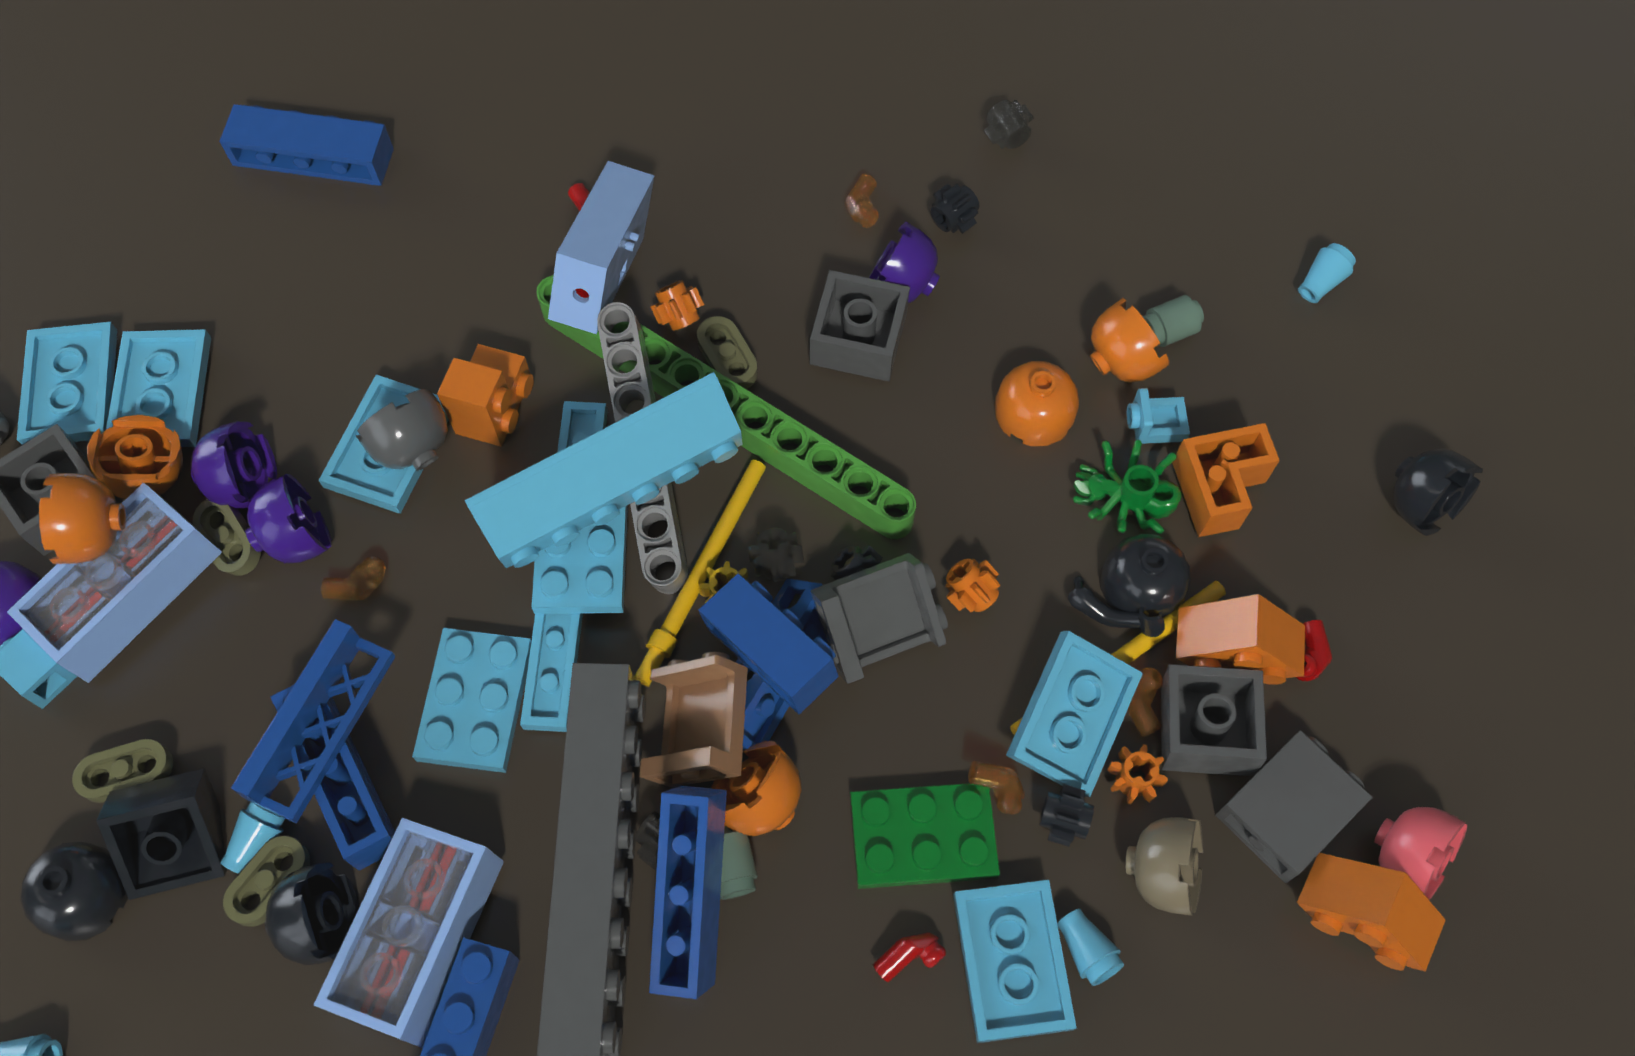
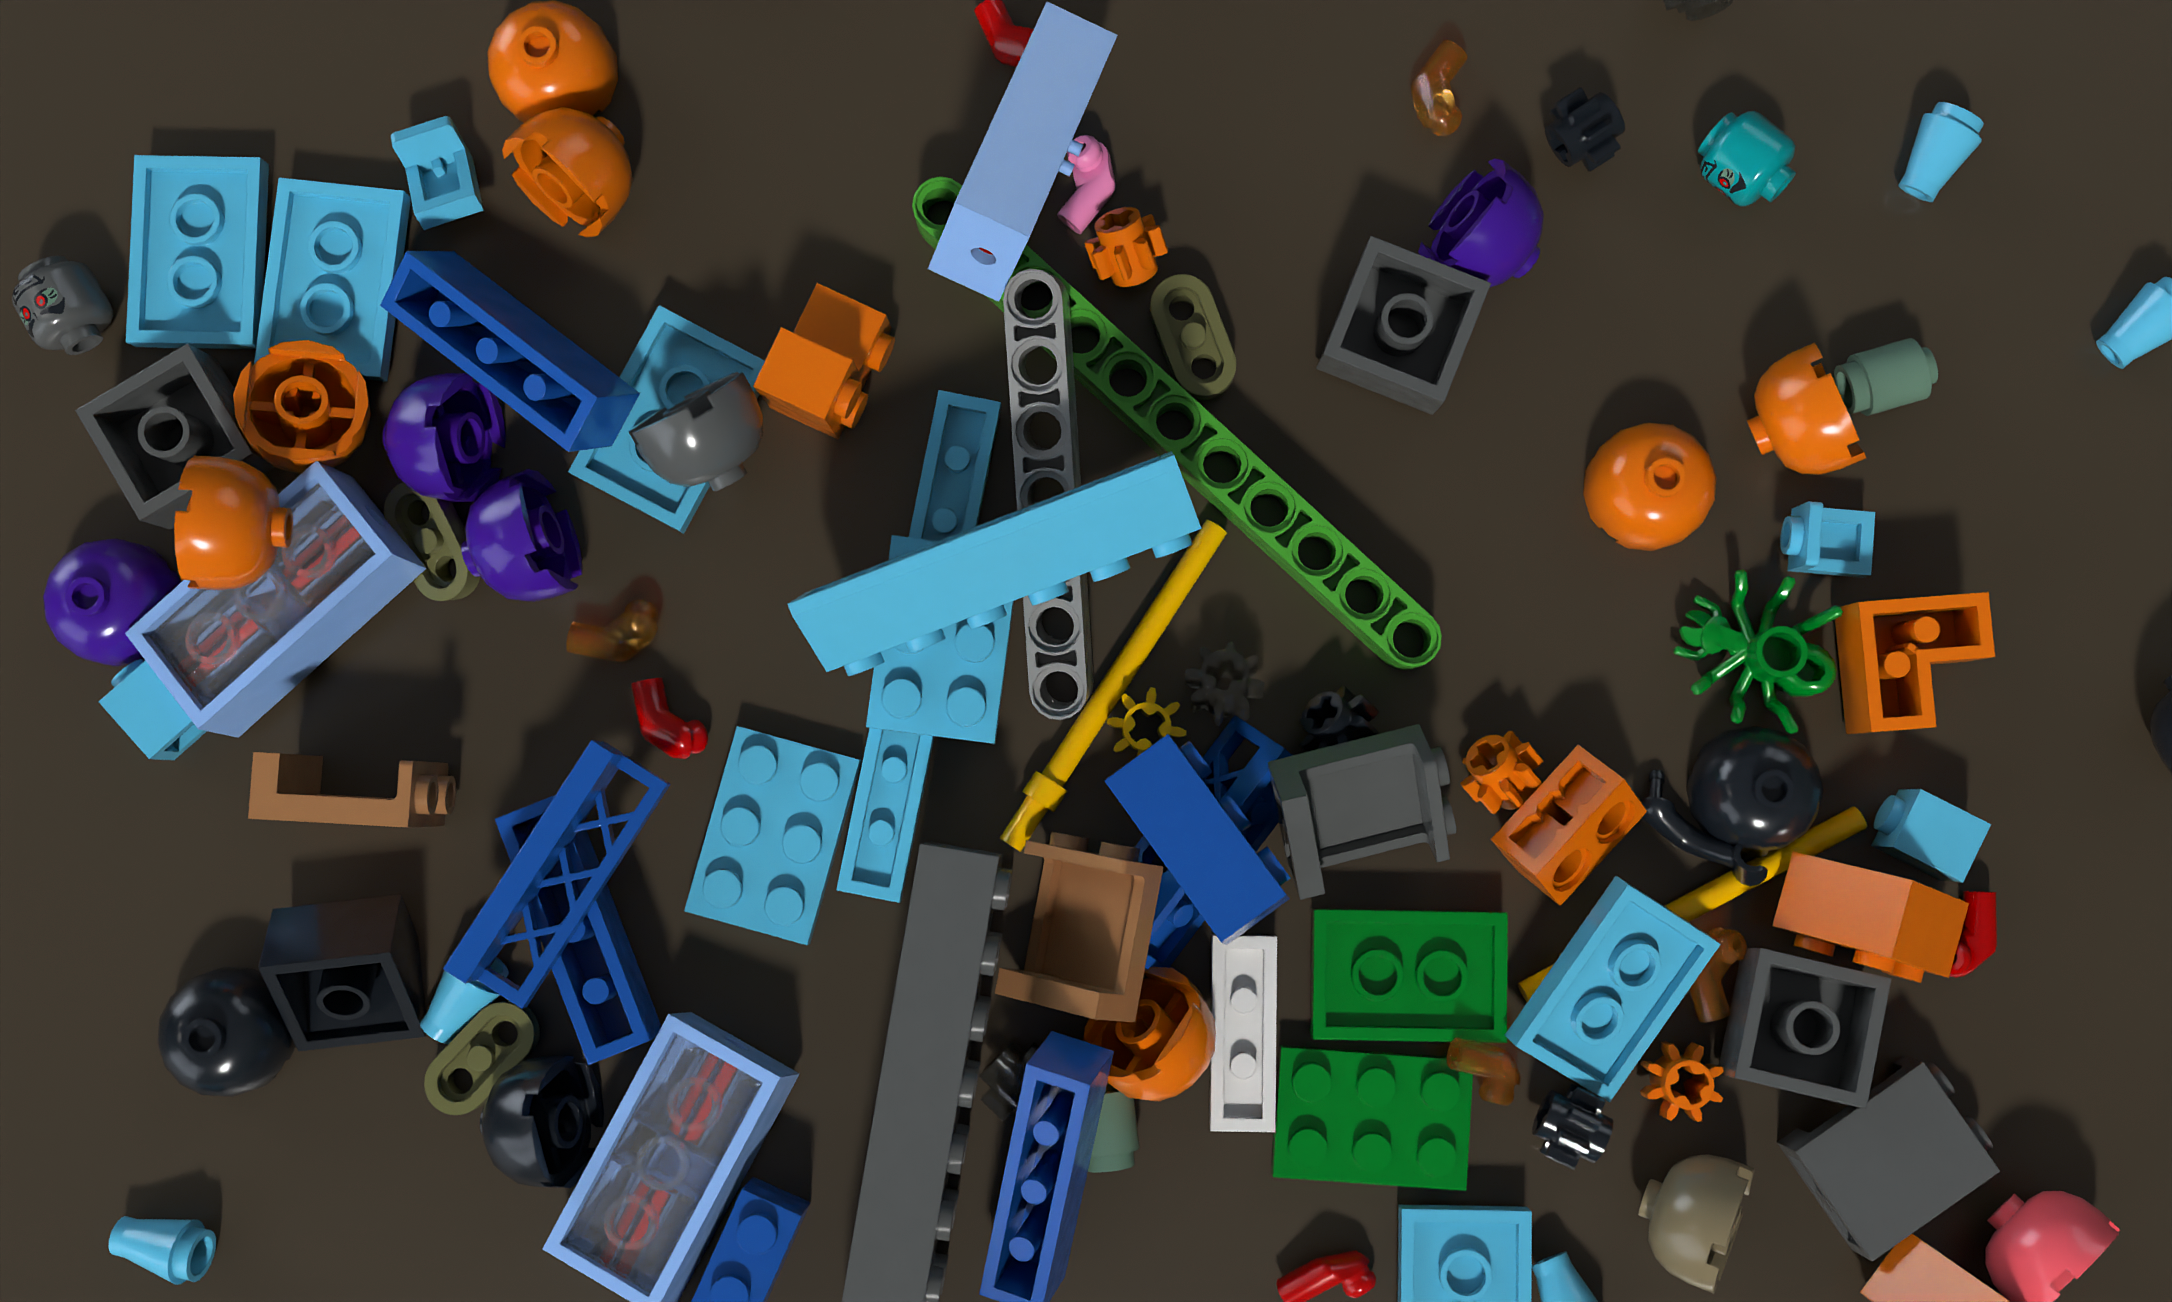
camera: 10 degrees right, 20 degrees up
(125, 768) = (290, 872): olive plate -> none
(141, 711) = (290, 787): none -> medium nougat panel
(227, 315) = (438, 172): none -> medium azure bracket
(276, 405) = (509, 349): none -> blue brick
(301, 252) = (550, 60): none -> orange cylinder
(313, 302) = (572, 167): none -> orange cylinder
(391, 636) = (662, 727): none -> red arm
(652, 275) = (1093, 182): none -> bright pink arm
(822, 786) = (1245, 1034): none -> white plate
(931, 729) = (1409, 975): none -> green plate
(1023, 610) = (1569, 824): none -> orange brick
(1058, 213) = (1747, 158): none -> teal head
(1174, 196) = (1939, 149): none -> medium azure cone
(1271, 579) = (1929, 834): none -> medium azure brick

